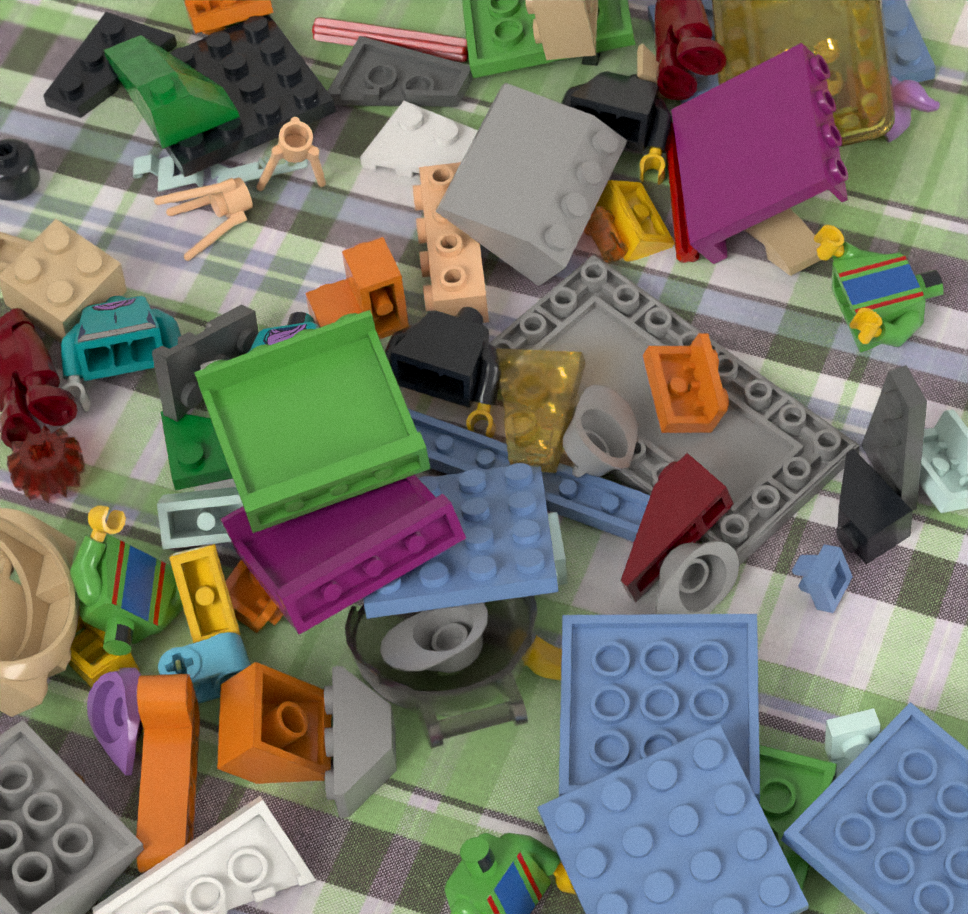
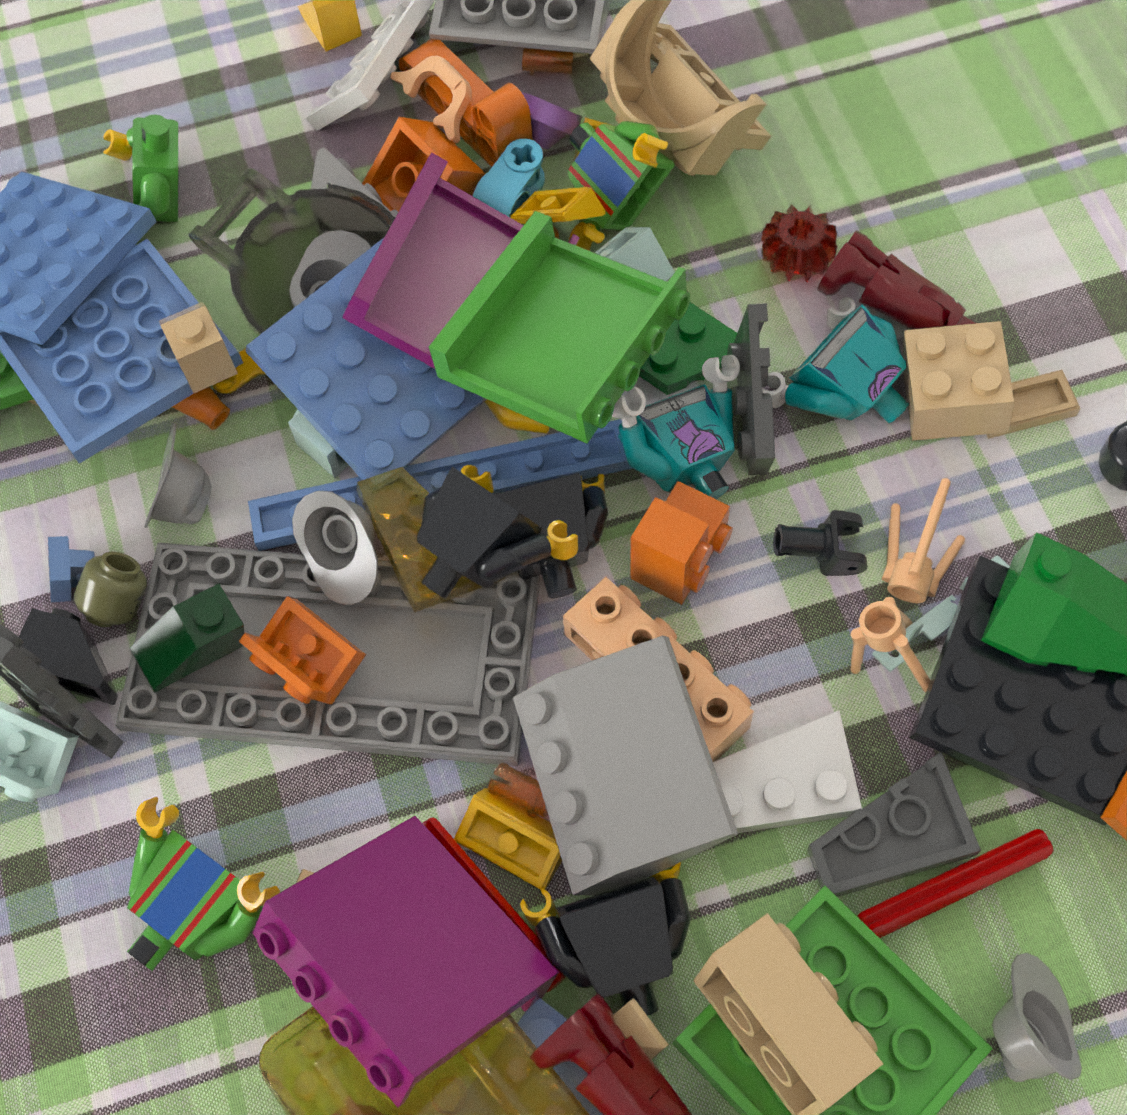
camera: 140 degrees right, 10 degrees up
(168, 792) = (460, 88): none -> light nougat helmet
(261, 254) = (823, 543): none -> black piece
(500, 346) = (482, 534): none -> black torso
(591, 626) = (198, 347): none -> tan slope
(678, 512) = (215, 528): dark red slope -> none
(760, 442) = (188, 638): none -> dark green slope
(797, 527) = (110, 589): none -> olive head

